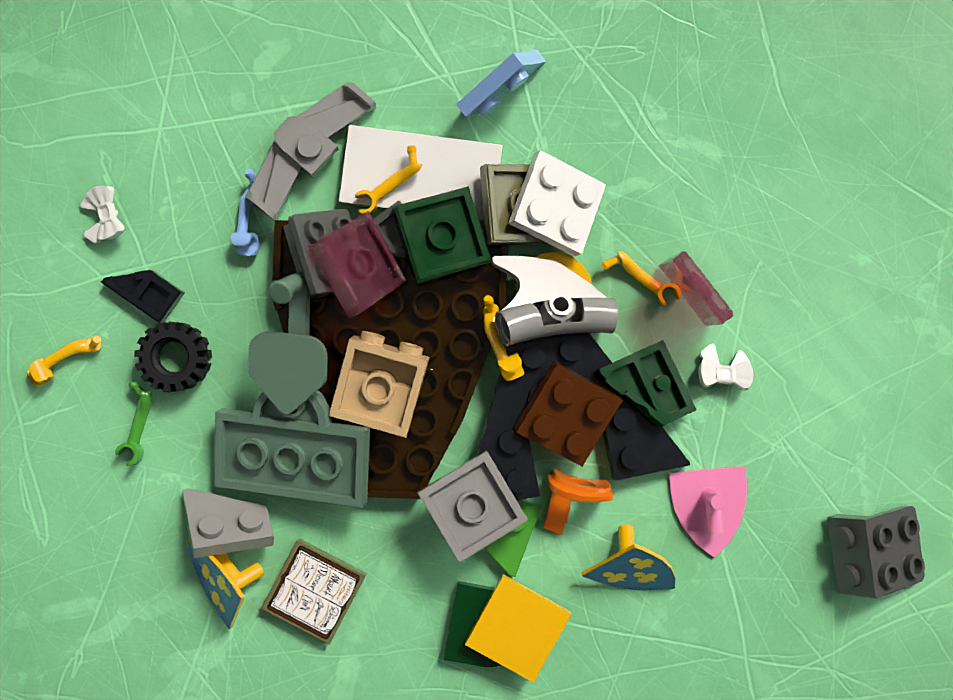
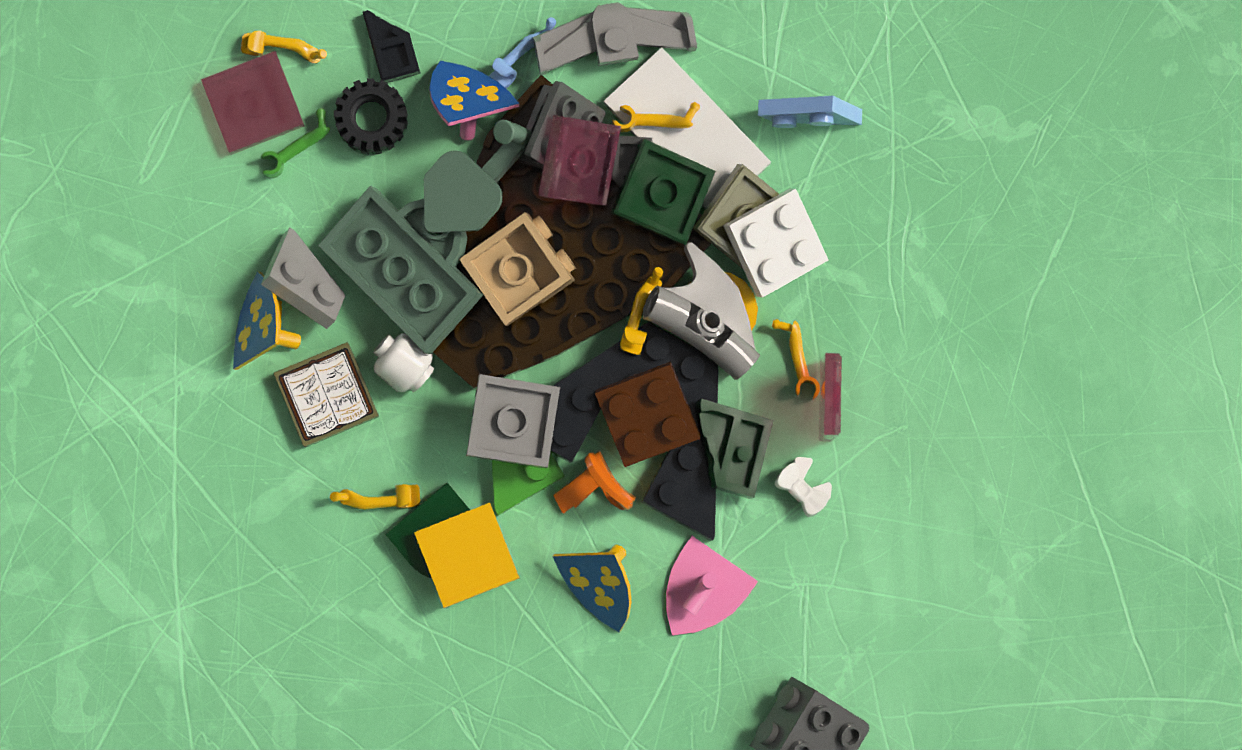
camera: 35 degrees right, 5 degrees down
(77, 418) = (252, 102): none -> clear pink tile
(230, 282) = (465, 95): none -> blue shield
(351, 525) = (402, 363): none -> white head
(434, 616) = (405, 497): none -> yellow piece

